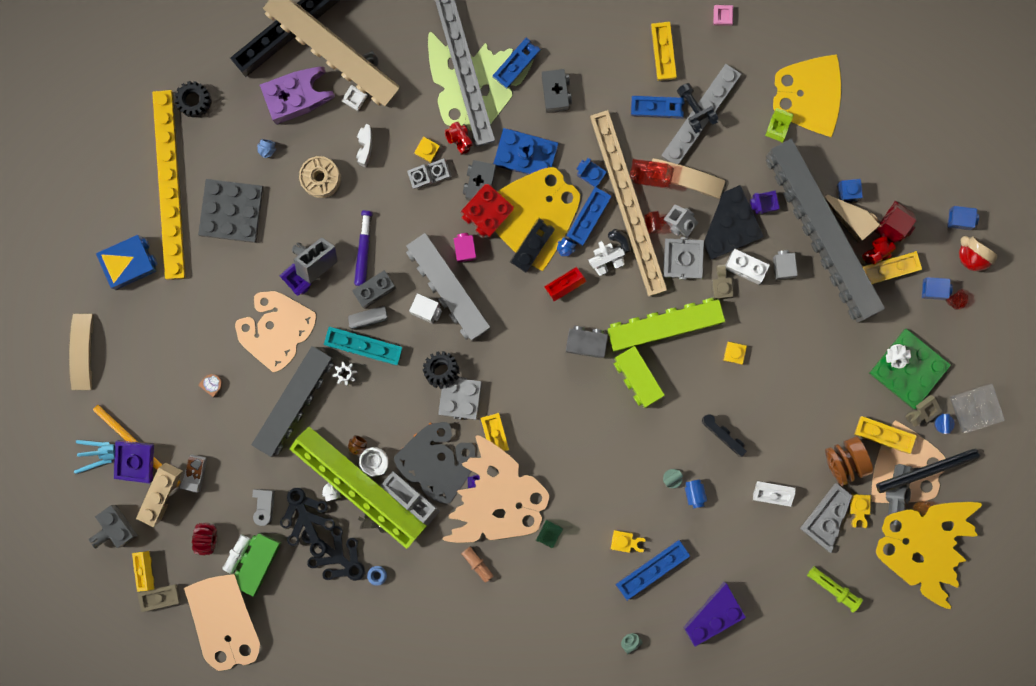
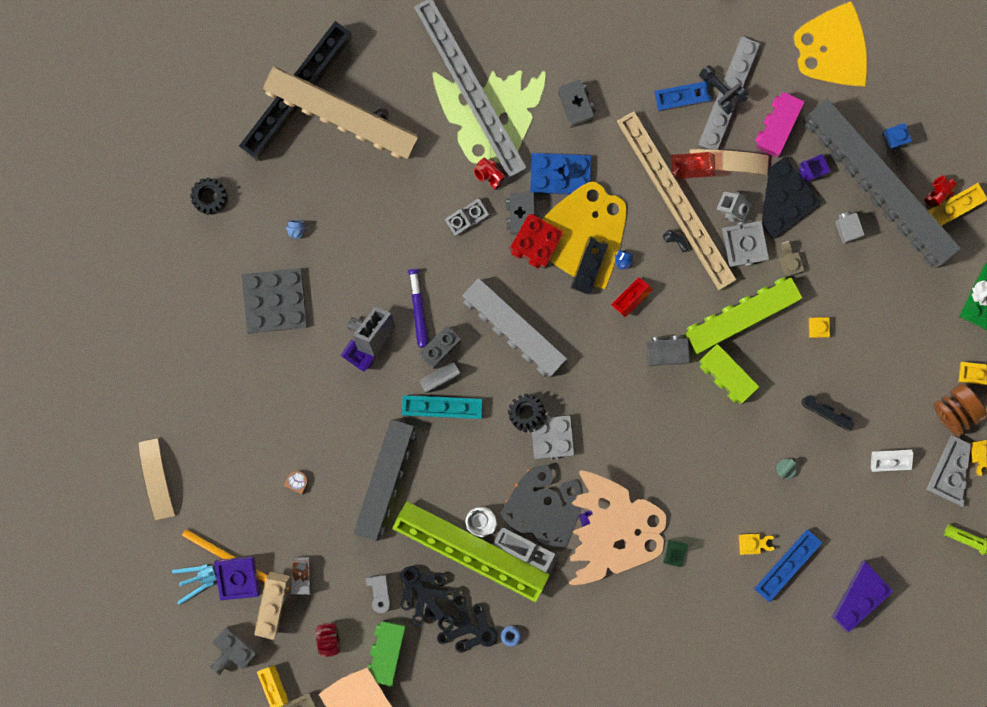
camera: 15 degrees left, 0 degrees up
(127, 262) = (181, 377): blue brick -> none
(168, 185) = (204, 289): yellow plate -> none
(236, 554) = (363, 647): white pin -> none
(283, 336) = (359, 412): light nougat piece -> none
(300, 89) = (319, 166): medium lavender brick -> none
(311, 169) = (345, 245): tan wheel -> none
(330, 492) = (444, 563): white plate -> none
(349, 377) = (425, 438): white gear -> none
(354, 98) = (373, 157): white tile -> none
(357, 445) = (459, 509): reddish brown plate -> none
(365, 140) = (394, 196): white slope -> none
(368, 523) = (489, 585): clear smoke piece -> none
(425, 309) = (497, 355): white brick -> none
(427, 149) = (459, 193): yellow plate -> none
(464, 248) = (521, 284): dark pink brick -> none
(477, 564) = (609, 601): nougat axle -> none
(494, 431) = (595, 462): yellow plate -> none
(516, 63) = (529, 85): blue plate -> none
(588, 216) = (639, 223): blue plate -> none
(590, 172) = (630, 178): blue bracket -> none
(614, 255) = (665, 258): white hips -> none
(631, 642) = (783, 644): sand green plate -> none
(654, 222) = (707, 213): clear red tile -> none
(663, 51) = (675, 38): yellow plate -> none
(695, 493) = (813, 478): blue brick -> none
(741, 153) = (778, 124): none -> dark pink brick
(746, 266) = (811, 237): white brick -> none
(779, 125) = (810, 86): lime bracket -> none
(855, 220) = (908, 164): tan slope -> none
(896, 223) = (952, 159): dark red wedge -> none

